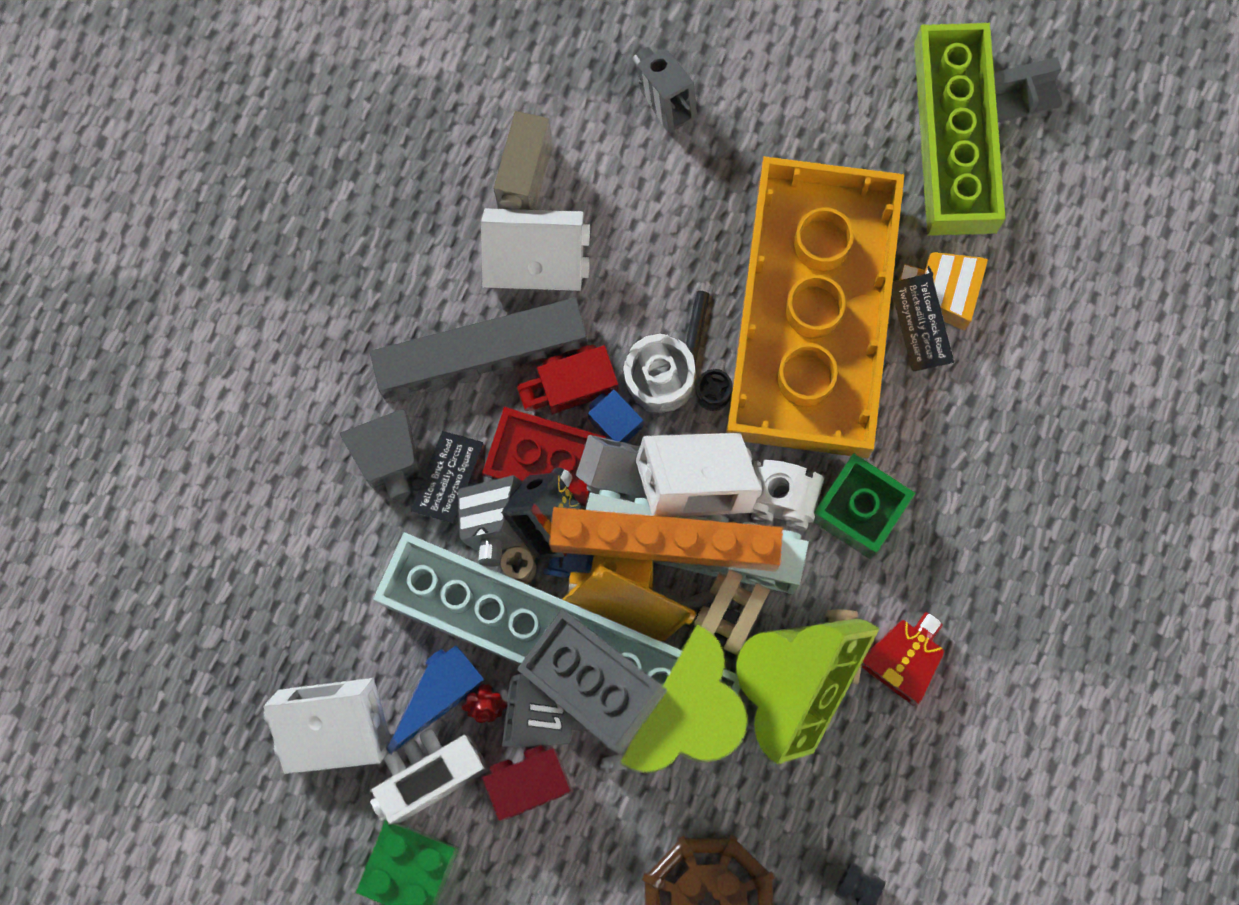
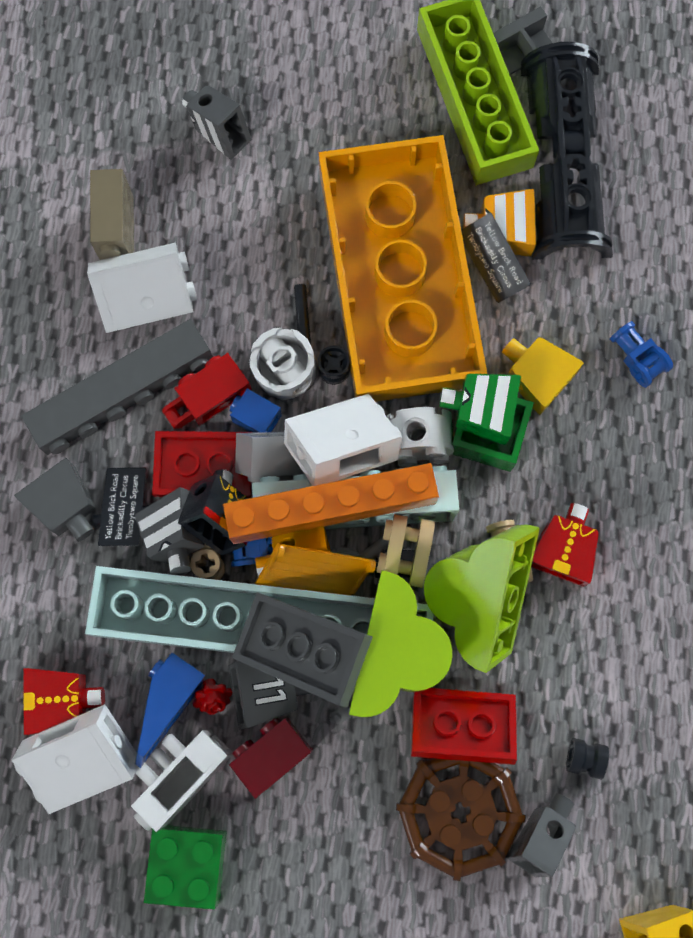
camera: 20 degrees left, 0 degrees up
(323, 657) = (55, 698): none -> red torso
(739, 813) = (464, 726): none -> red plate
(860, 481) = (485, 405): none -> green torso
(935, 460) = (543, 370): none -> yellow torso
(1004, 303) = (557, 220): none -> black piece
(1052, 473) = (641, 355): none -> blue connector

